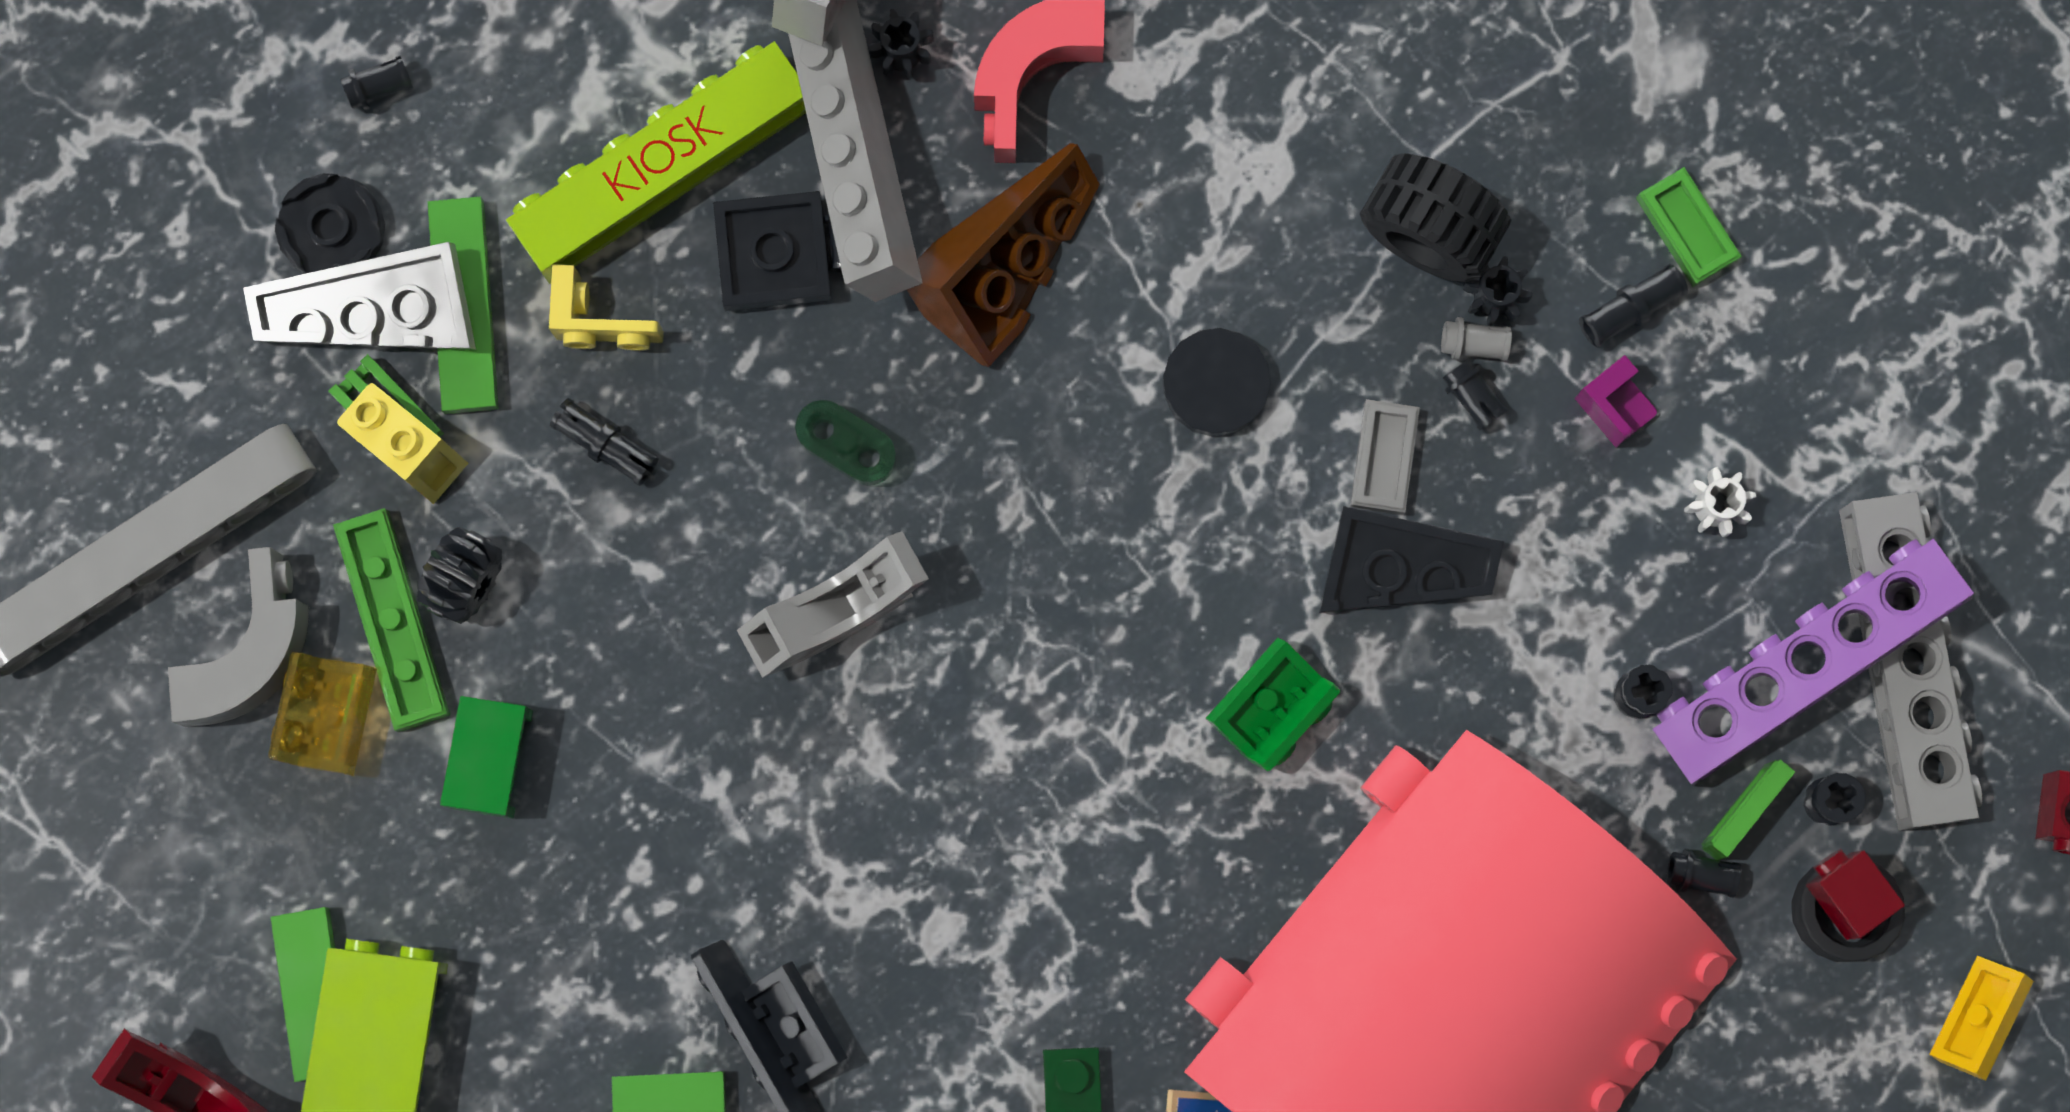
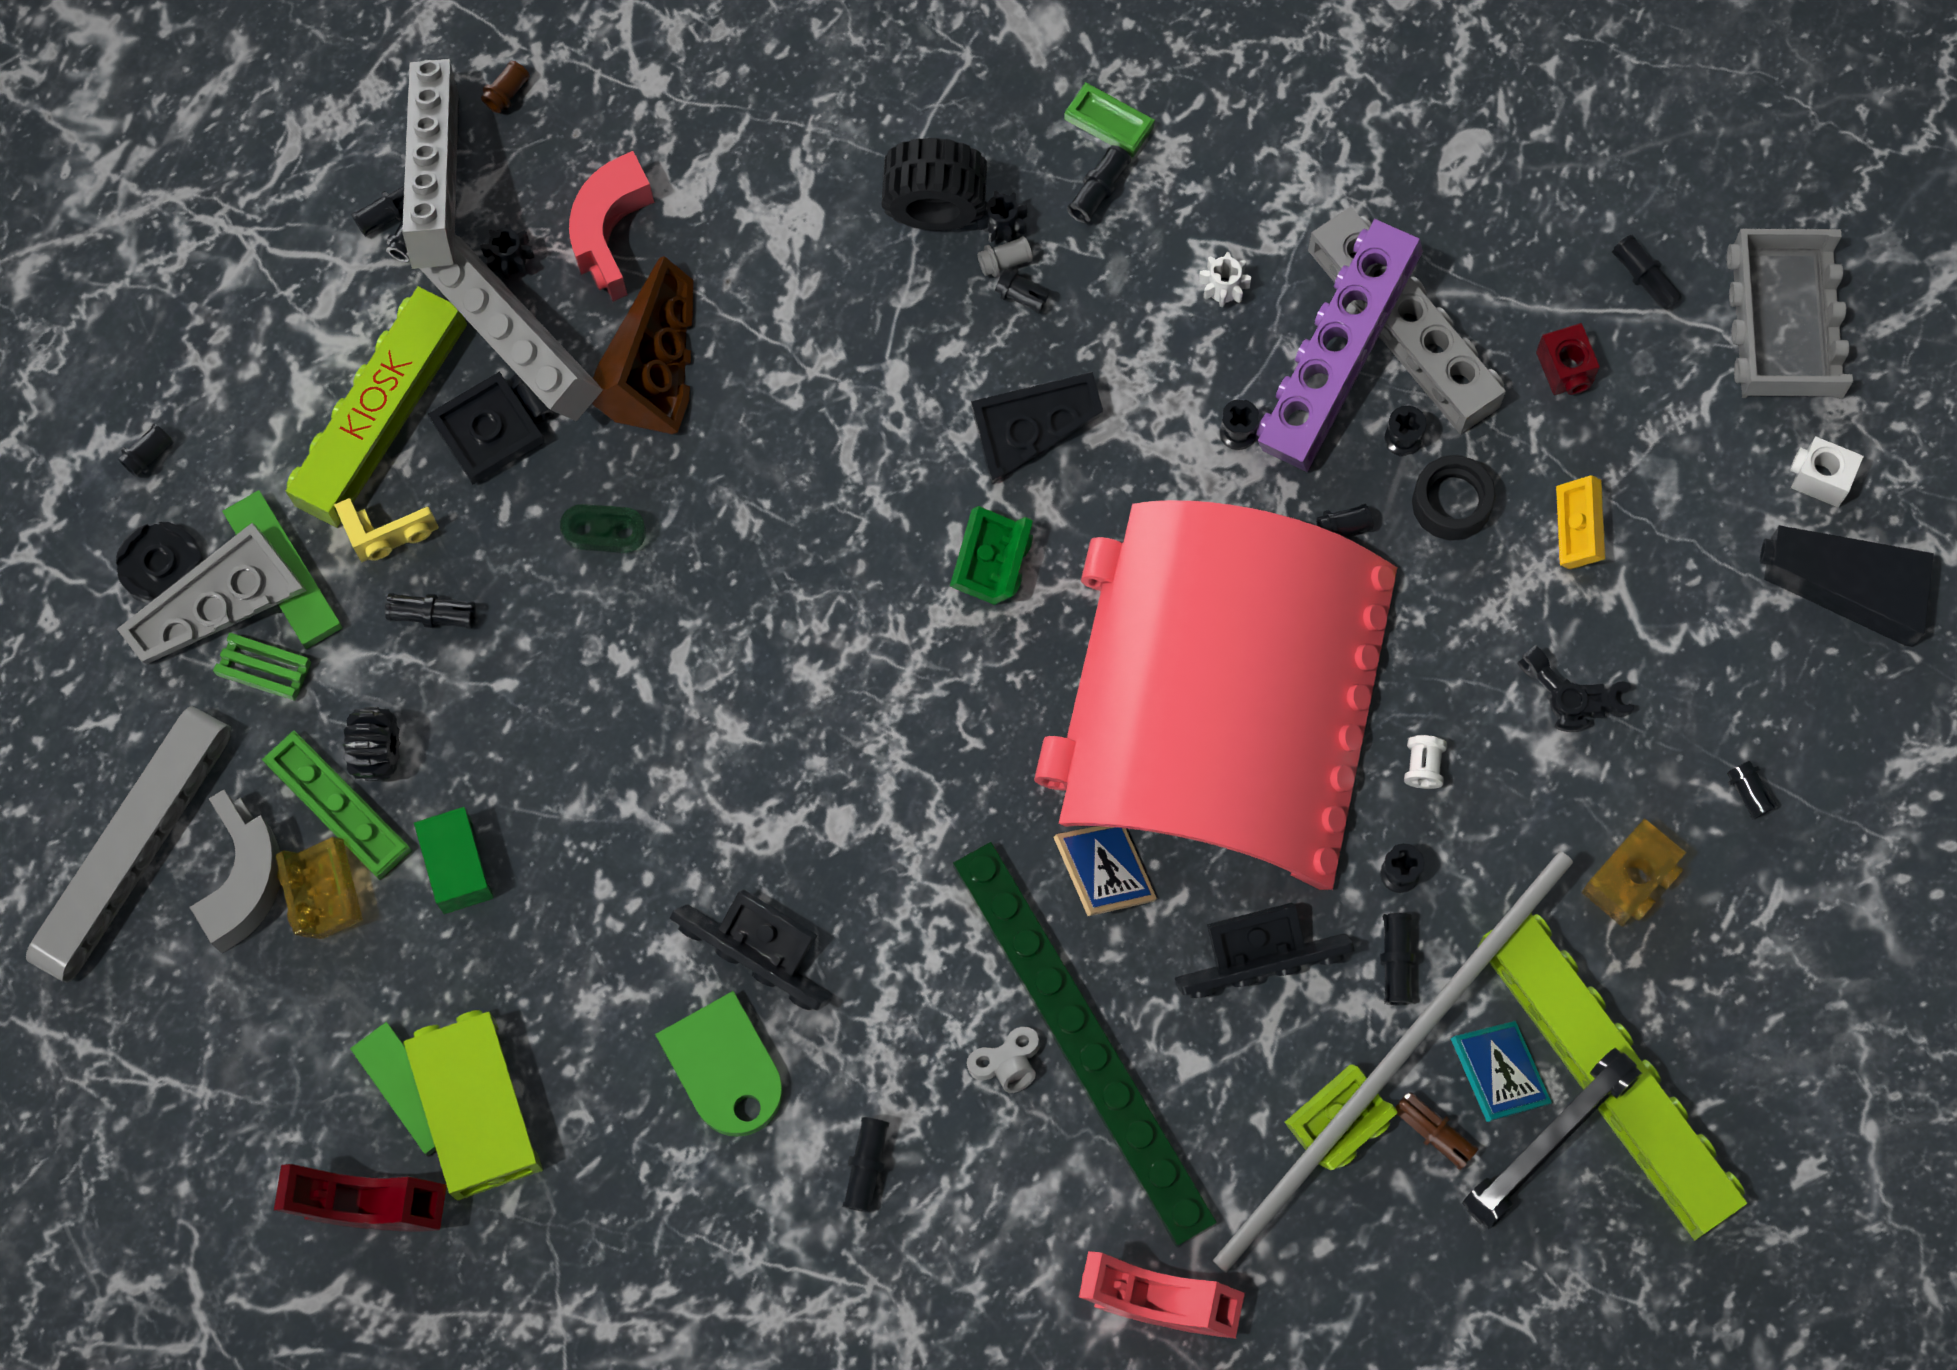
camera: 25 degrees left, 10 degrees down
(402, 442) = (286, 674): light yellow bracket -> none
(835, 608) = (655, 638): light grey arch -> none
(1216, 382) = (841, 368): black tile -> none
(1384, 457) = (982, 359): light grey tile -> none
(1616, 402) = (1118, 251): magenta panel -> none
(1747, 809) = (1350, 464): bright green tile -> none
(1853, 893) = (1448, 475): dark red brick -> none

